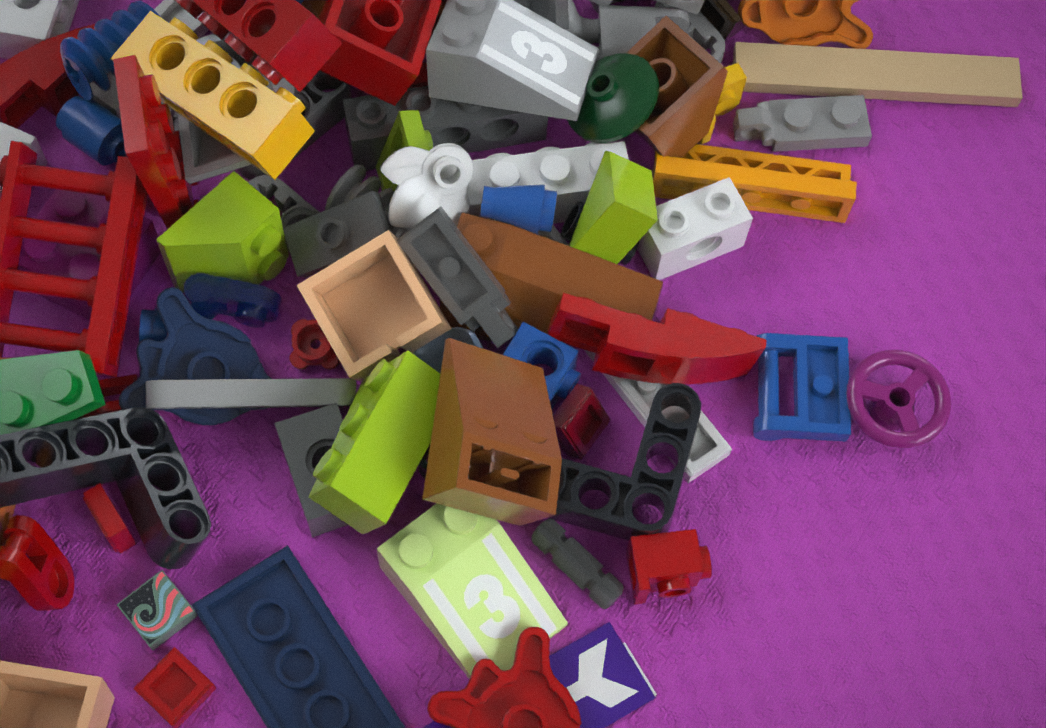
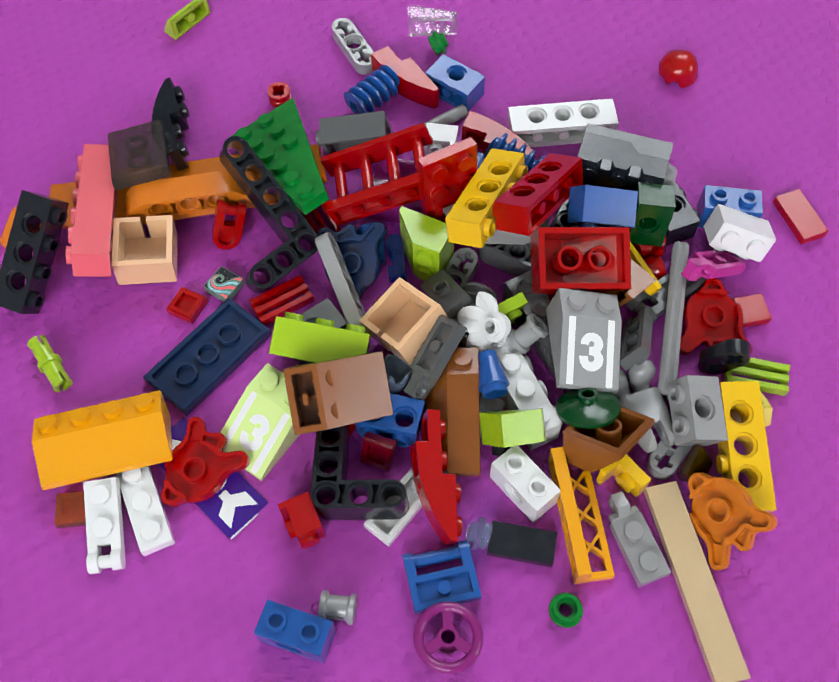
camera: 80 degrees right, 5 degrees down
(108, 519) = (262, 246): red tile -> none
(221, 474) = (279, 297): none -> red tile
(464, 129) = (528, 333): none -> light grey bush
(577, 563) = (294, 475): dark grey axle -> none
(751, 313) = (479, 533): none -> clear light blue plate
(774, 267) = (522, 544): none -> black tile
(817, 544) = (338, 607): none -> light grey bush
(846, 613) = (295, 631): none -> blue brick
(889, 229) = (573, 603): none -> green plate

